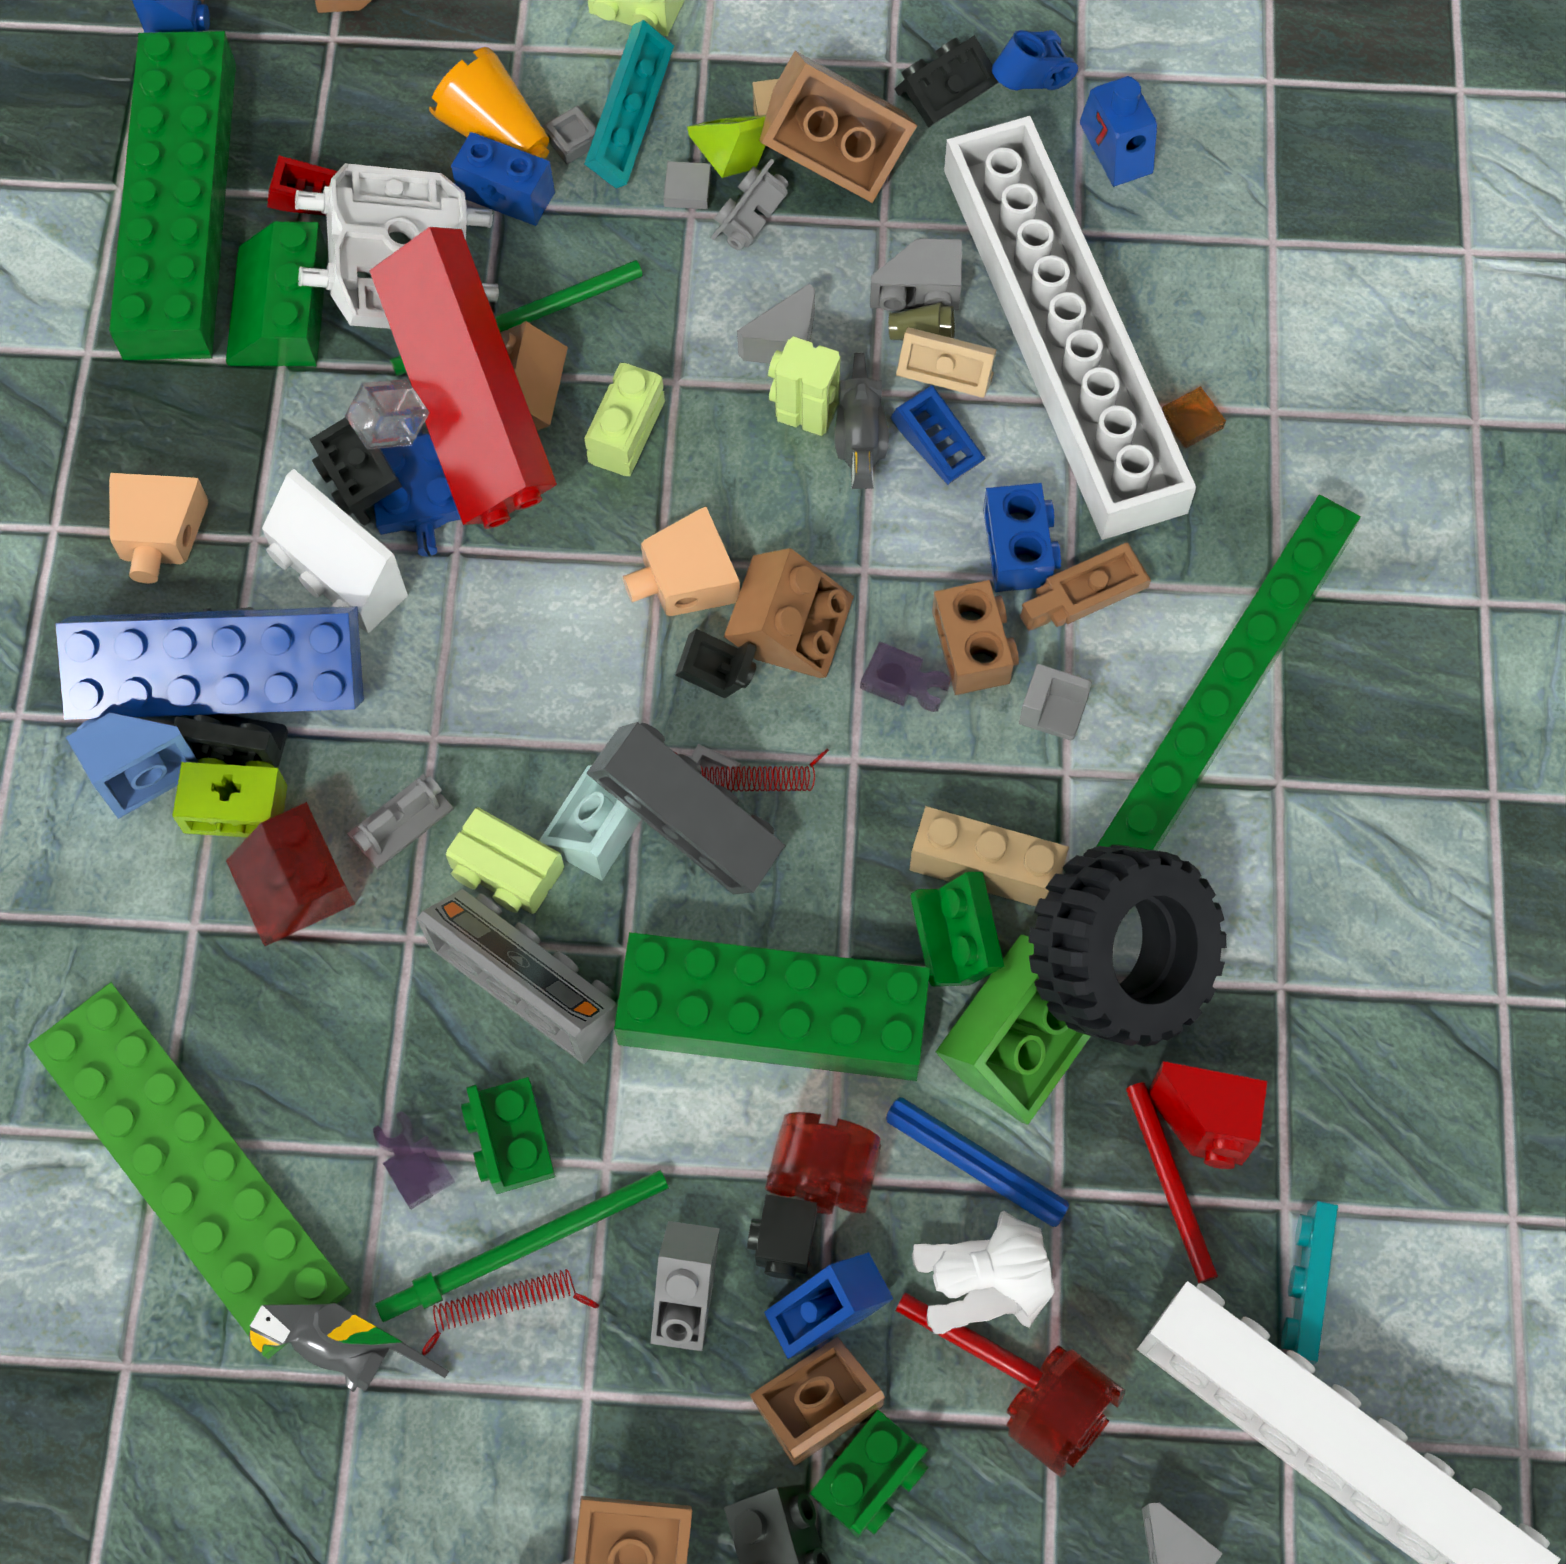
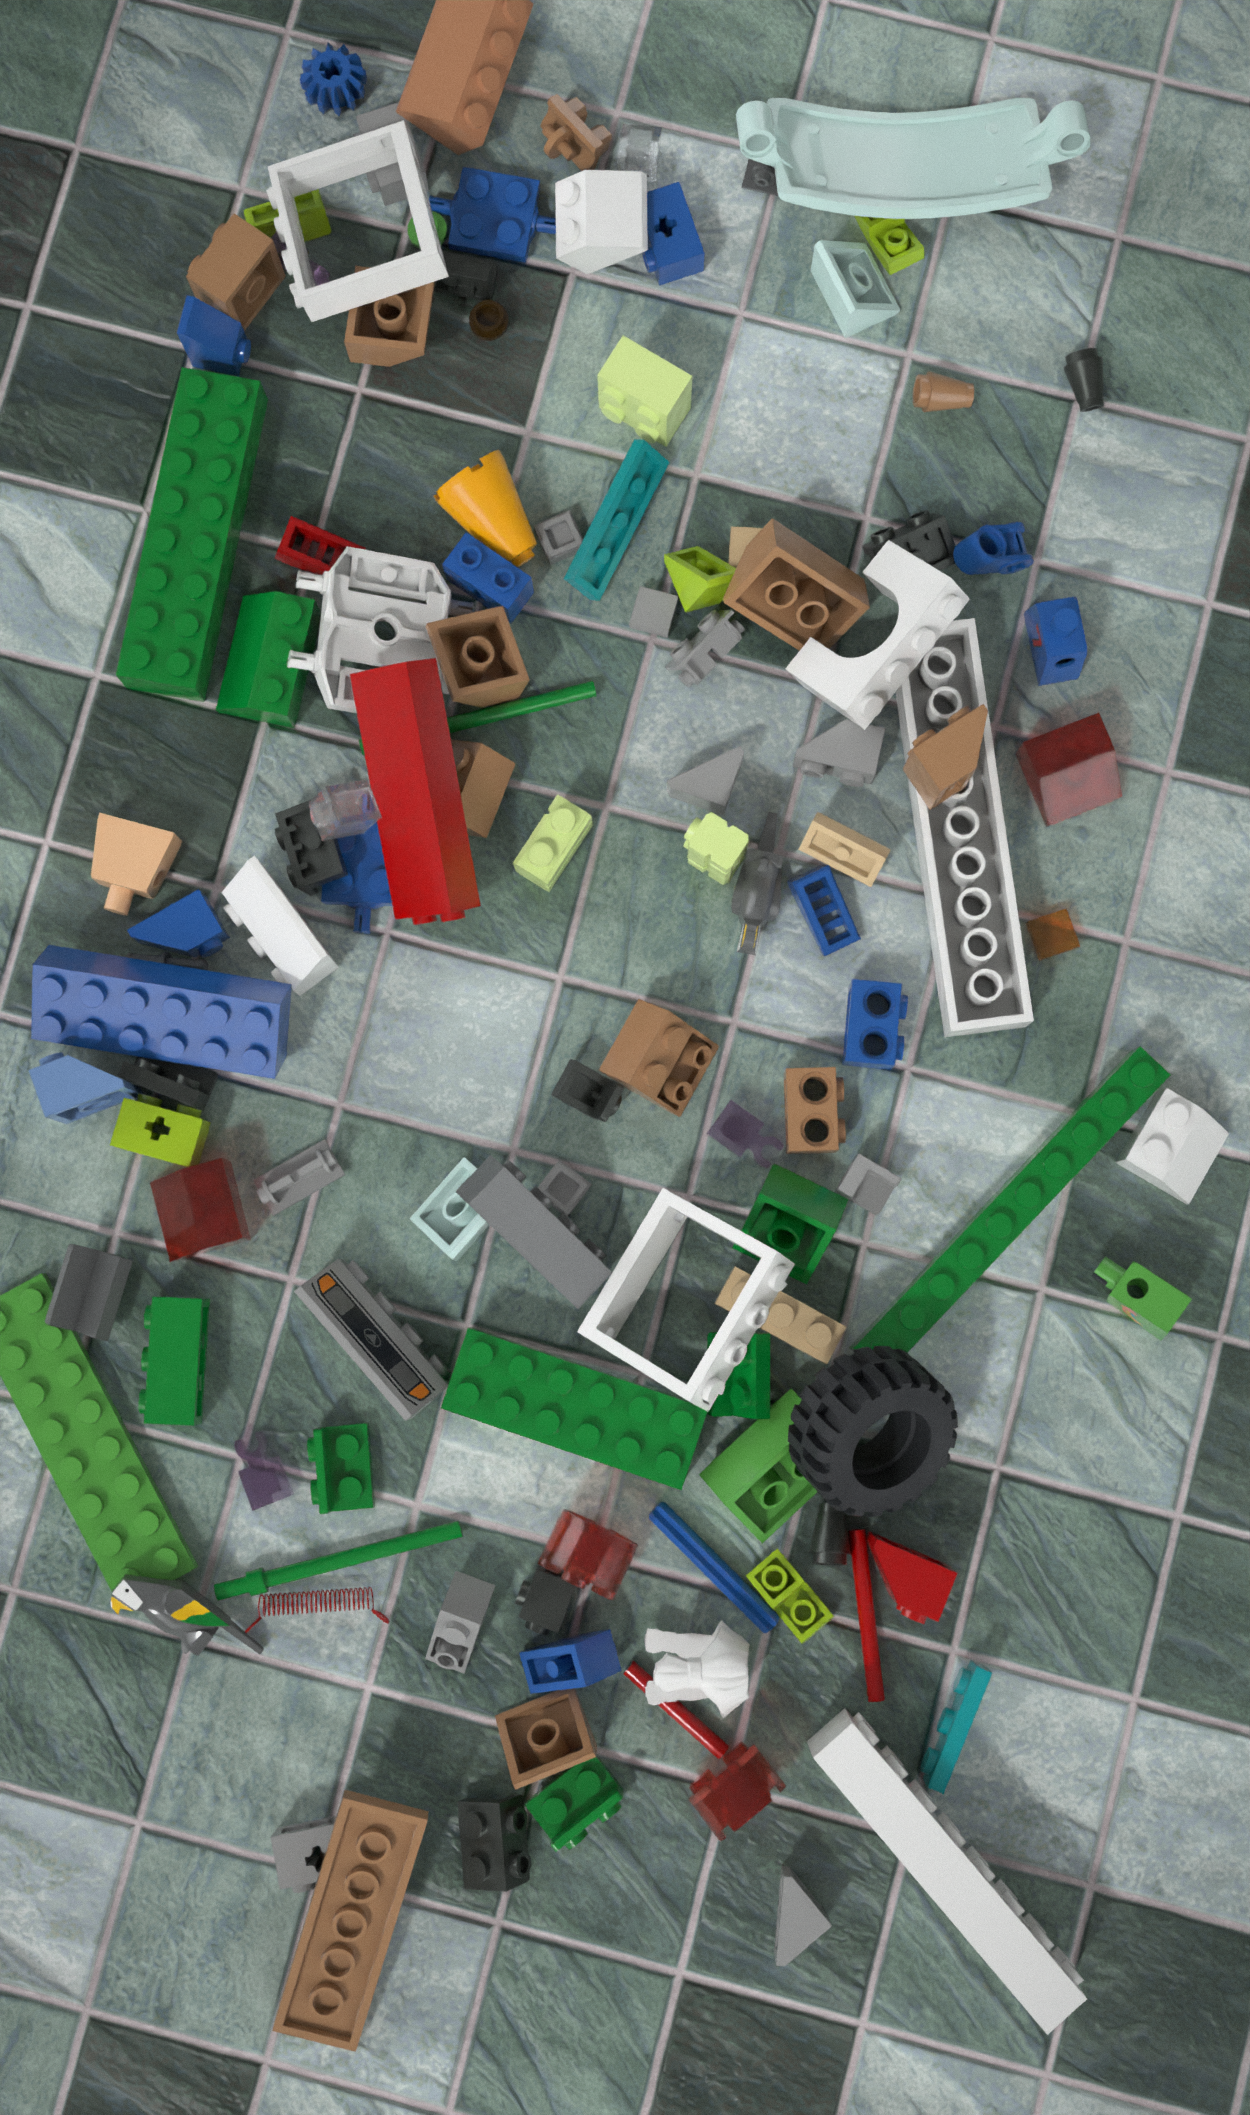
camera: 15 degrees right, 15 degrees up
(170, 989) = (88, 1291): none -> dark grey panel
(221, 579) = (183, 928): none -> blue slope
(286, 1048) = (175, 1361): none -> green brick
(504, 861) = (377, 1234): yellowish green brick -> none
(511, 247) = (479, 657): none -> medium nougat slope
(685, 567) = (578, 995): light nougat torso -> none
(762, 775) = (596, 1195): red piece -> none
(818, 824) = (638, 1267): none -> white window
(923, 198) = (866, 683): none -> white arch
(929, 318) = (835, 799): olive cone -> none
(976, 761) = (794, 1219): none -> green slope
(1033, 234) = (946, 760): none -> medium nougat slope
(1073, 1175) = (790, 1596): none -> lime slope
(1086, 588) = (921, 1082): medium nougat hinge -> none
(1106, 1097) = (830, 1537): none -> pearl dark grey cone
(1168, 250) = (1071, 769): none -> clear red slope
(1384, 598) = (1173, 1145): none -> white slope
(1397, 757) = (1160, 1302): none -> bright green torso

